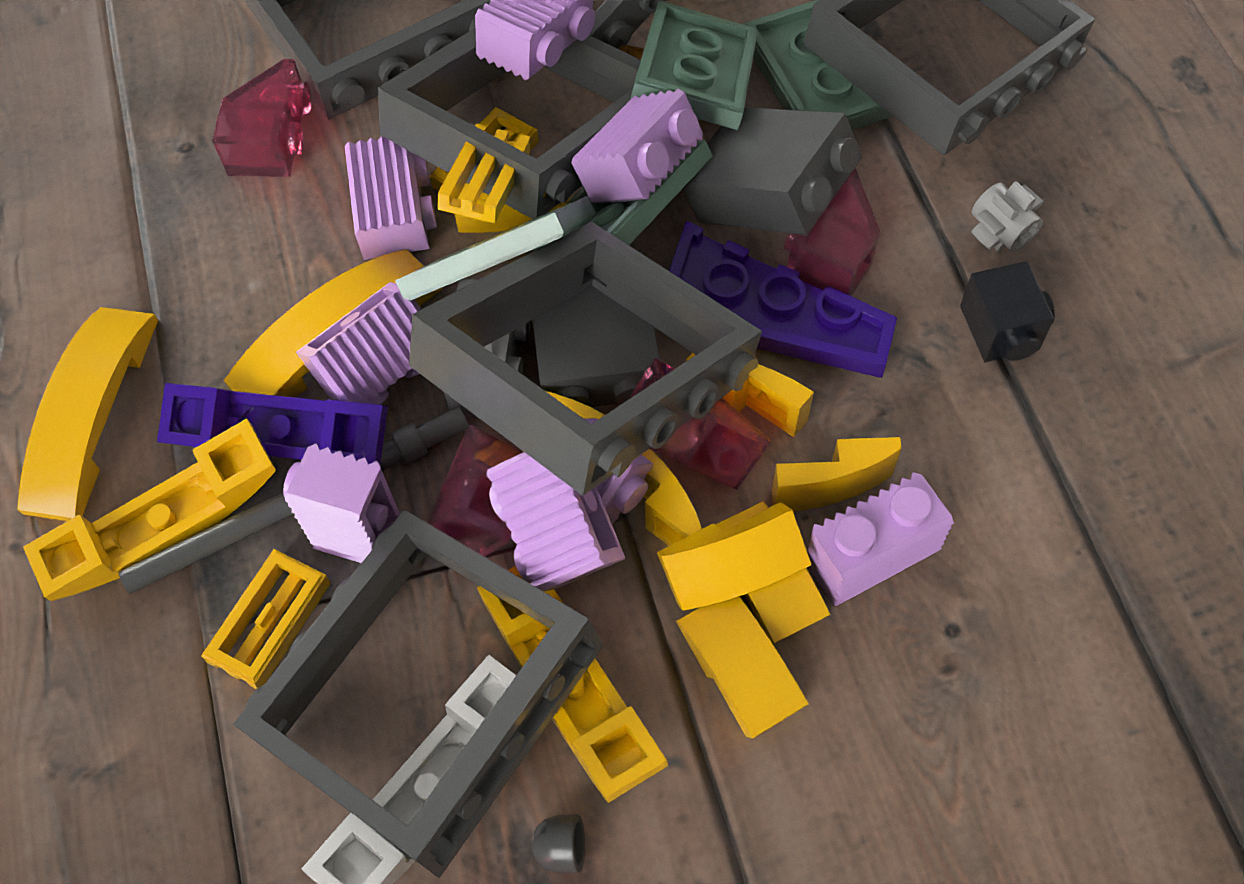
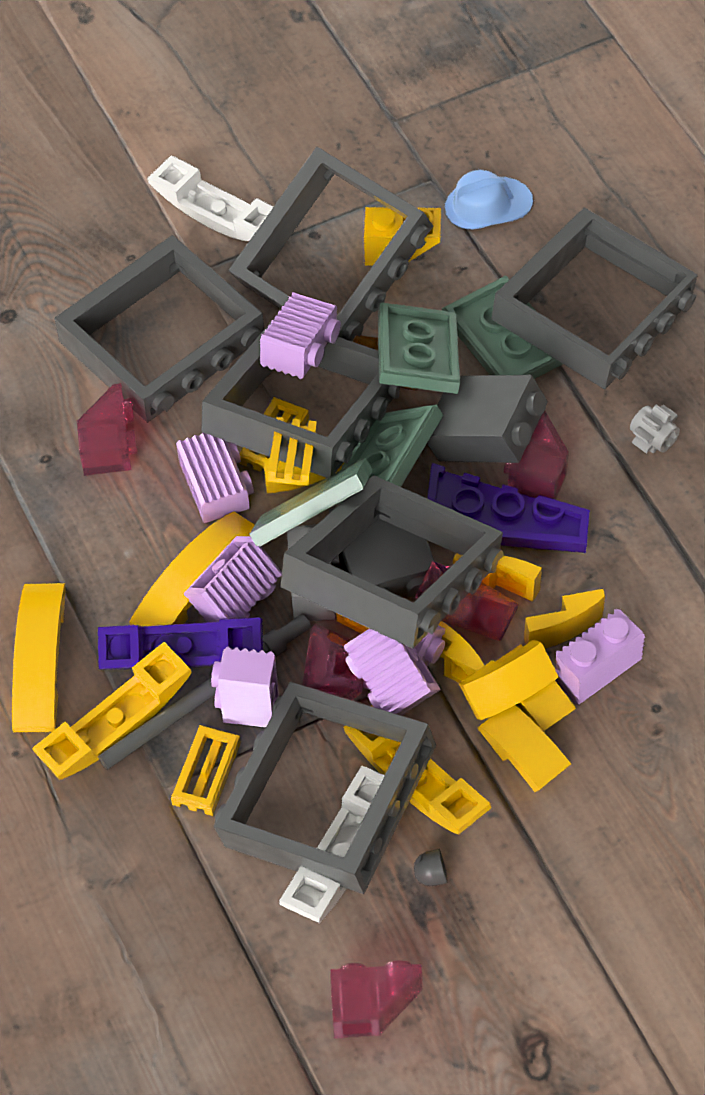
camera: 10 degrees left, 5 degrees down
(638, 148) = (393, 418): lavender brick -> none
(1007, 312) = (663, 495): black brick -> none

